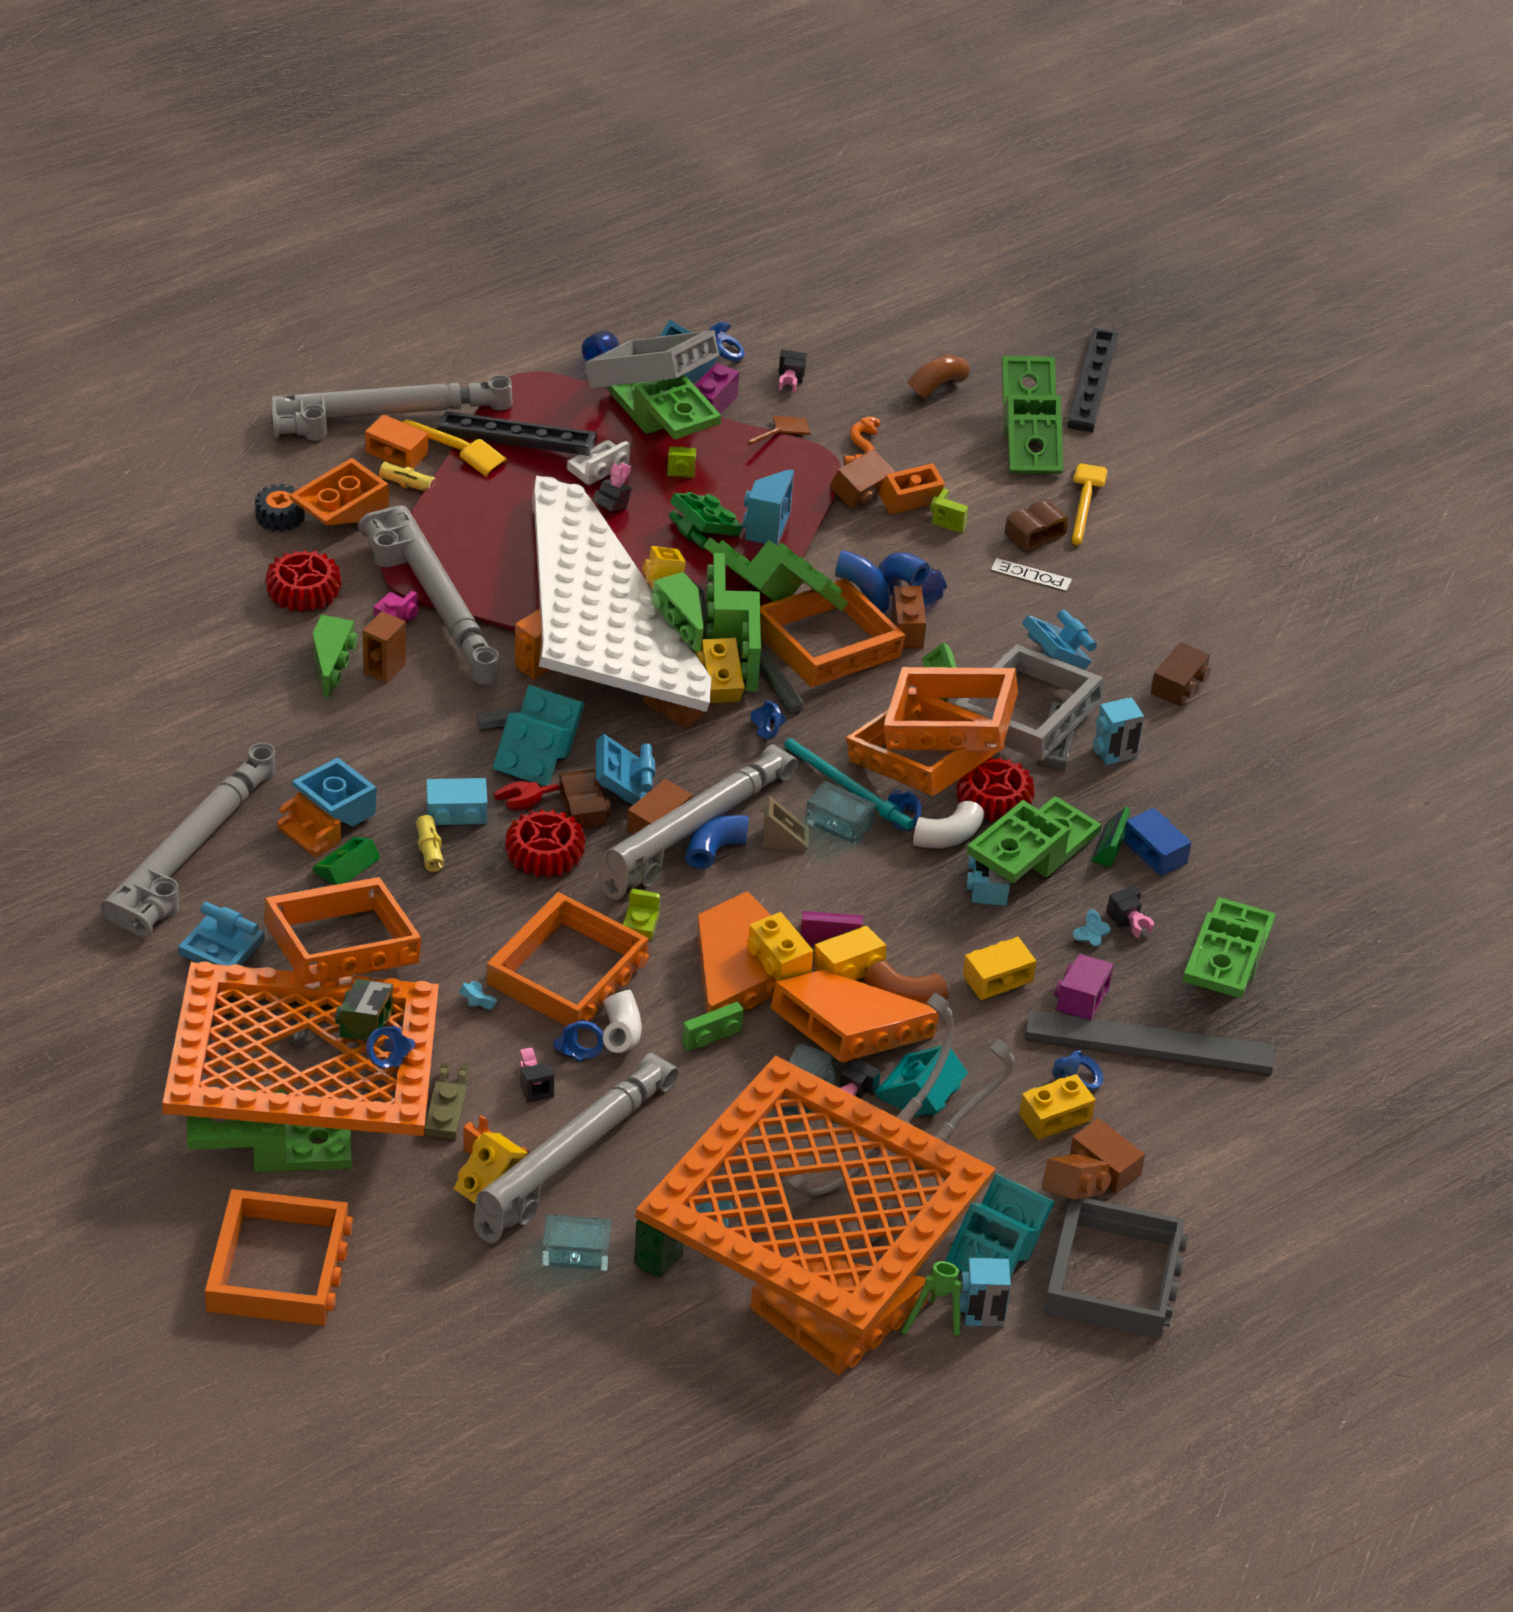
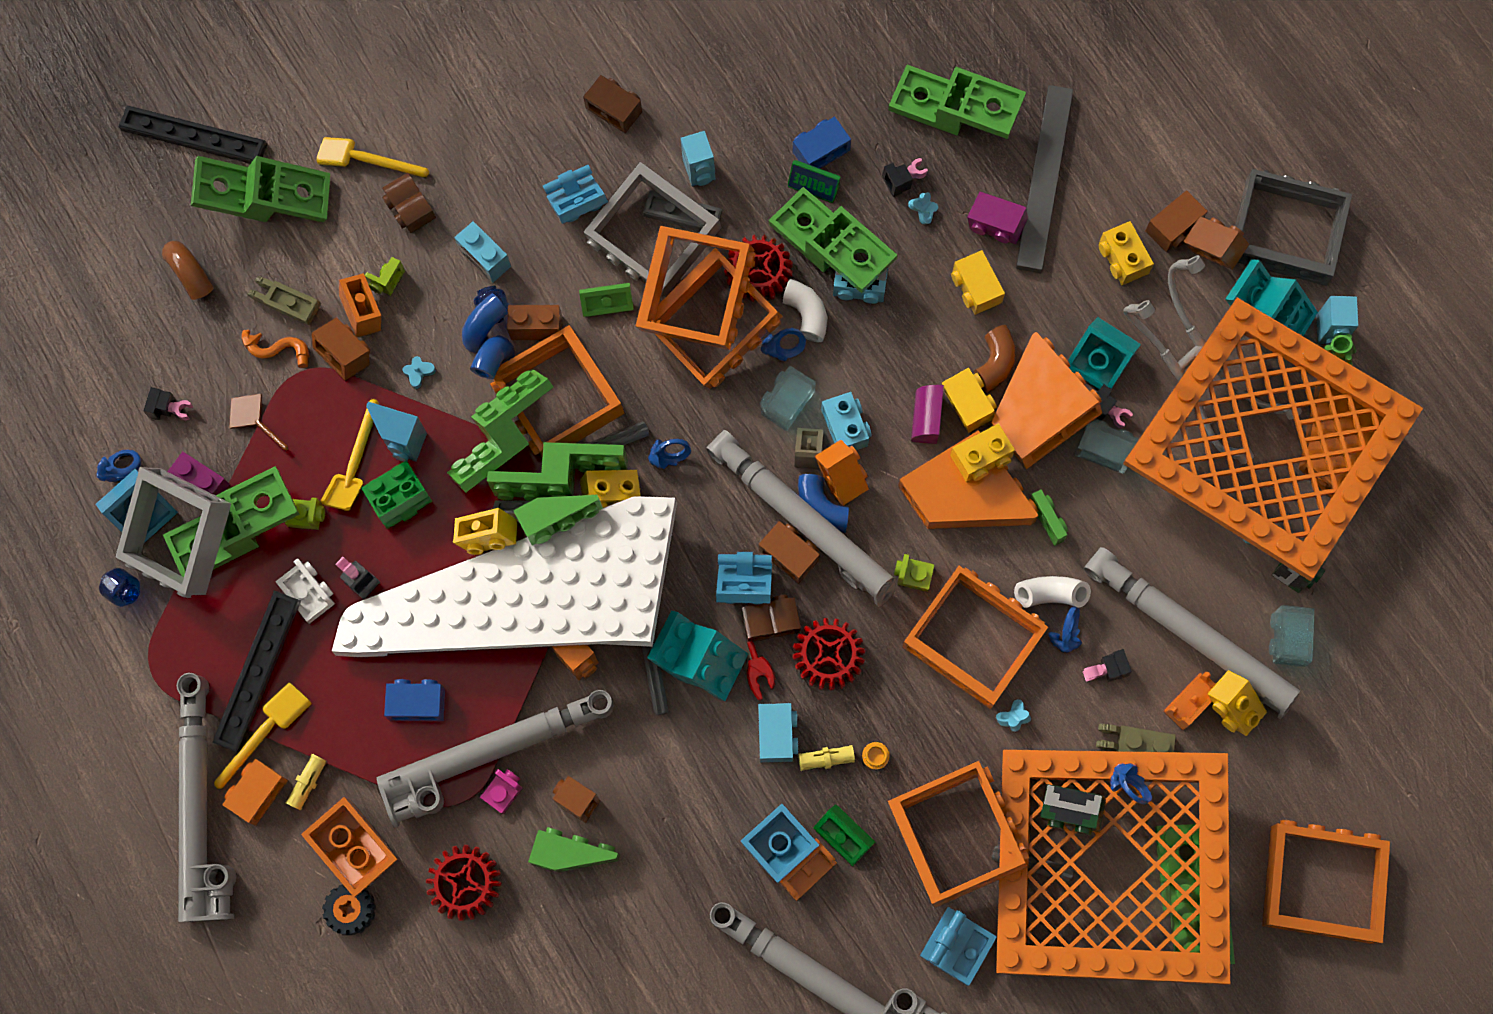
camera: 80 degrees left, 30 degrees up
(432, 882) = (875, 755): none -> light orange plate
(486, 536) = (414, 701): none -> blue brick
(707, 483) = (344, 489): none -> yellow piece
(751, 842) = (842, 472): none -> orange brick
(813, 858) = (845, 422): none -> medium azure brick
(846, 540) = (417, 371): none -> medium azure piece
(886, 808) = (788, 357): teal bar -> none
(914, 445) = (286, 300): none -> olive hinge
(985, 577) = (482, 251): none -> medium azure brick
(1031, 574) = (466, 213): white sticker -> none
(1069, 1067) = (1087, 235): blue piece -> none

